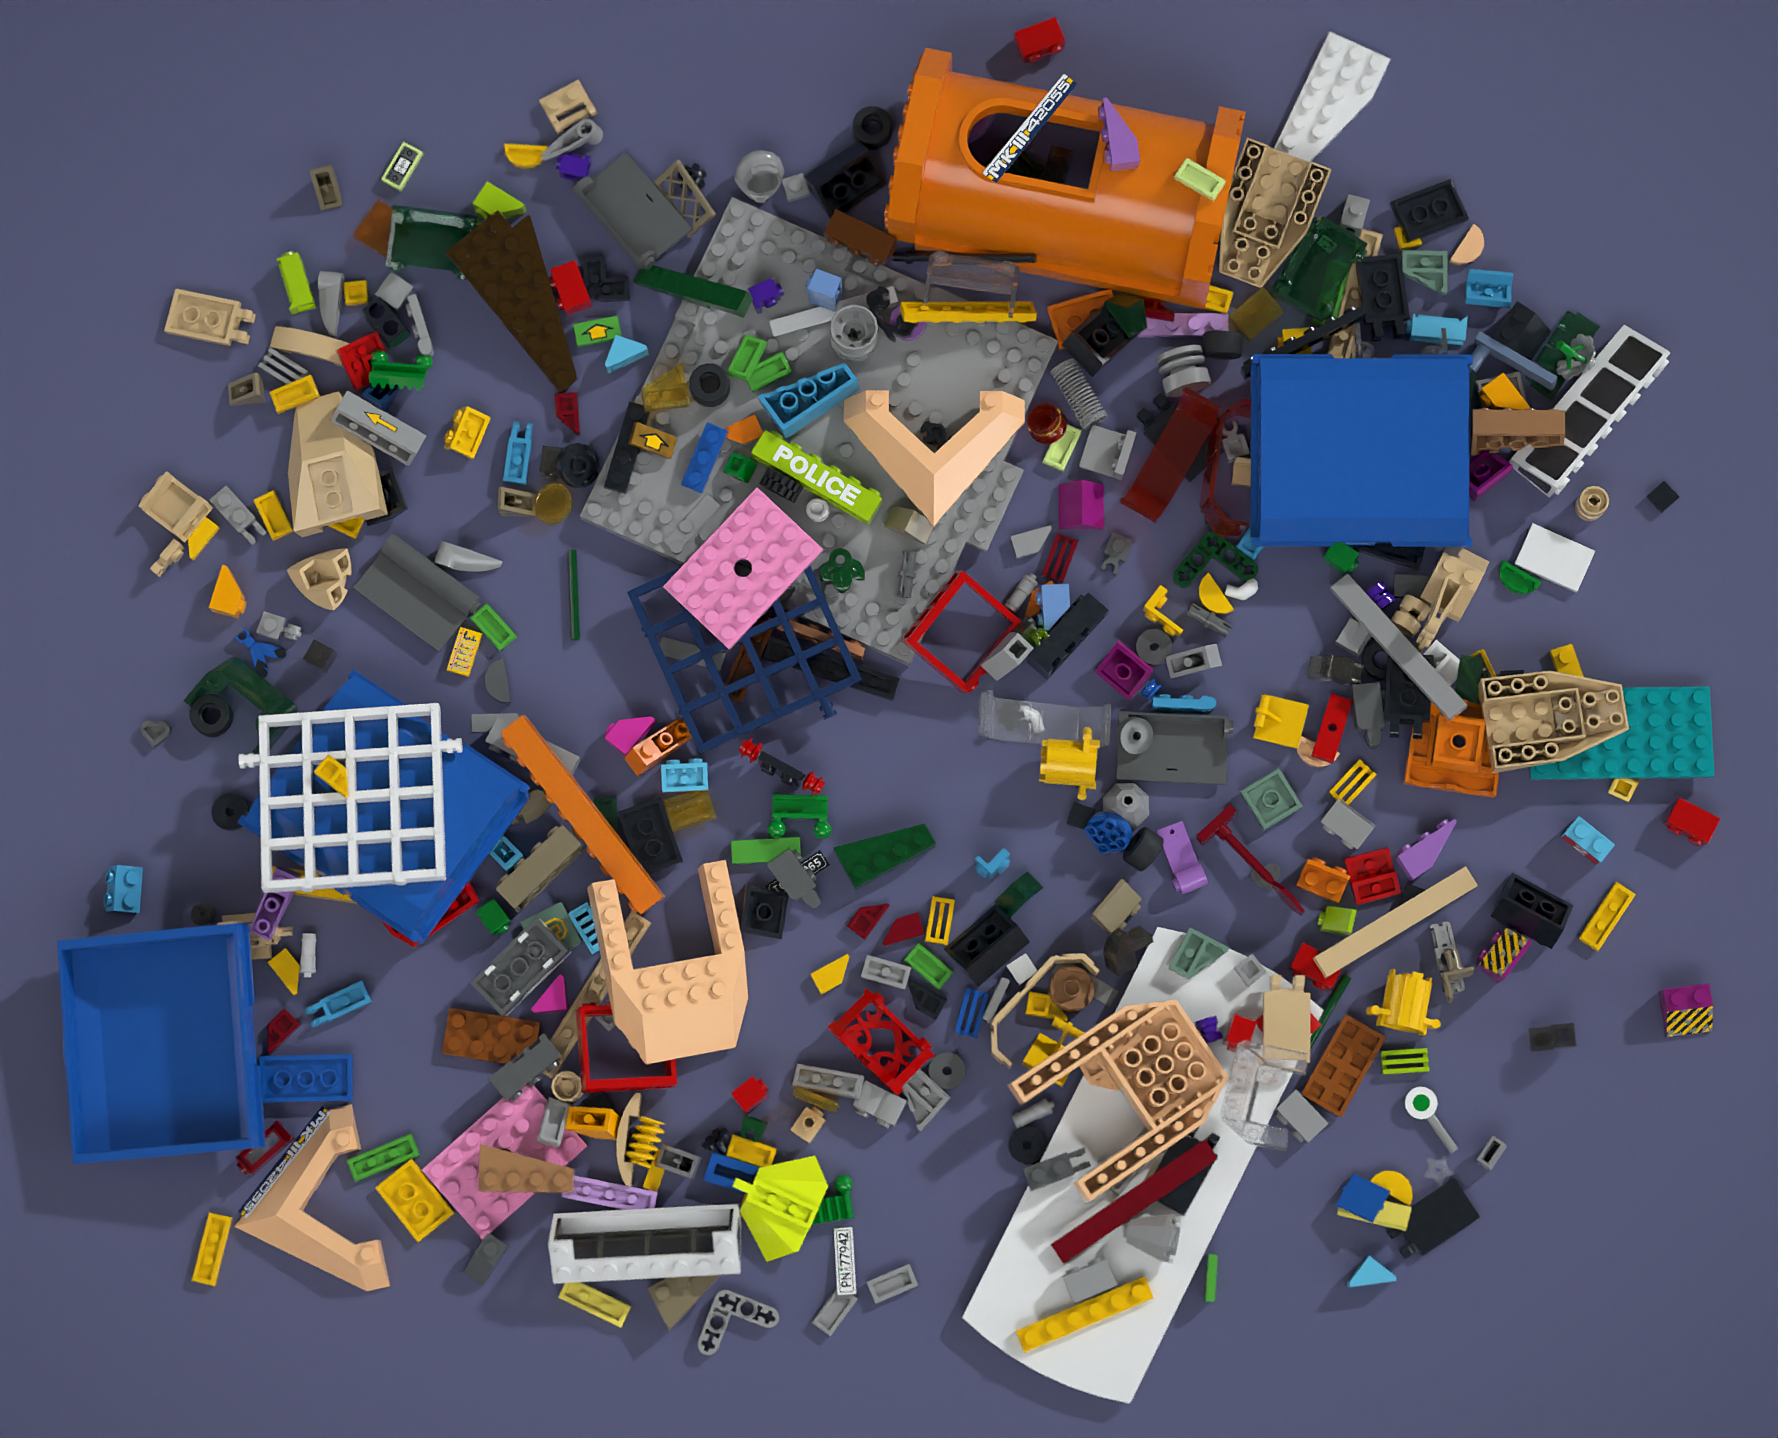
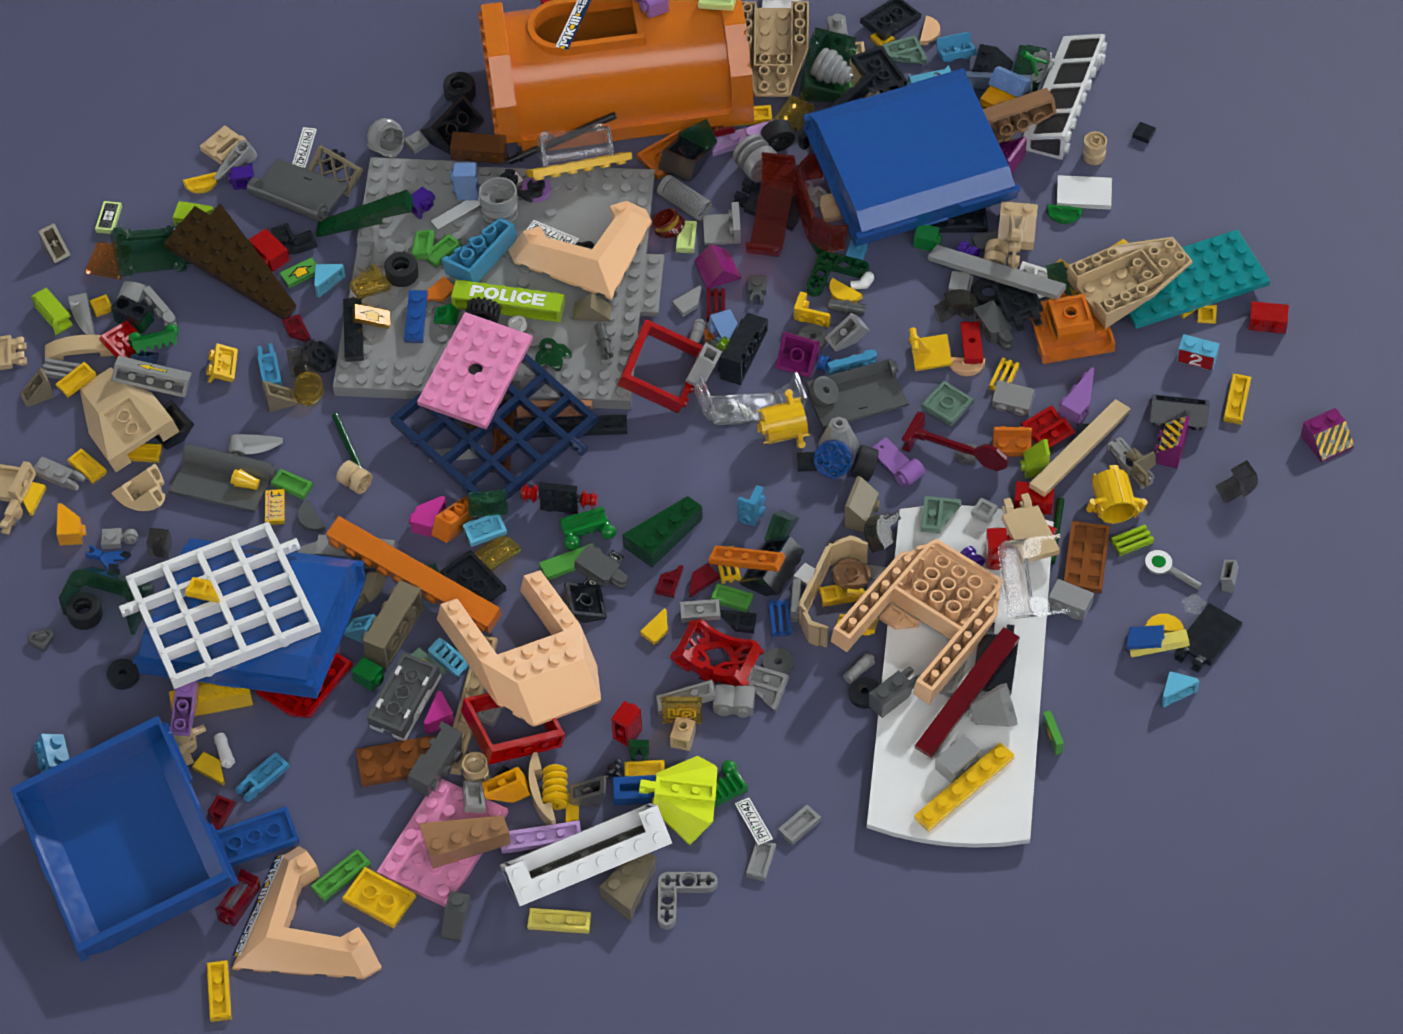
camera: 20 degrees left, 25 degrees down
(439, 608) = (244, 480): none -> yellow cone
(563, 649) = (354, 477): none -> tan wheel
(662, 144) = (304, 147): none -> white sticker
(697, 749) = (488, 503): none -> clear green hinge
(904, 394) = (554, 233): none -> white sticker
(959, 933) = (746, 558): none -> orange tile
(1322, 275) = (831, 68): none -> light grey piece
(1526, 379) = (1009, 81): none -> medium blue brick

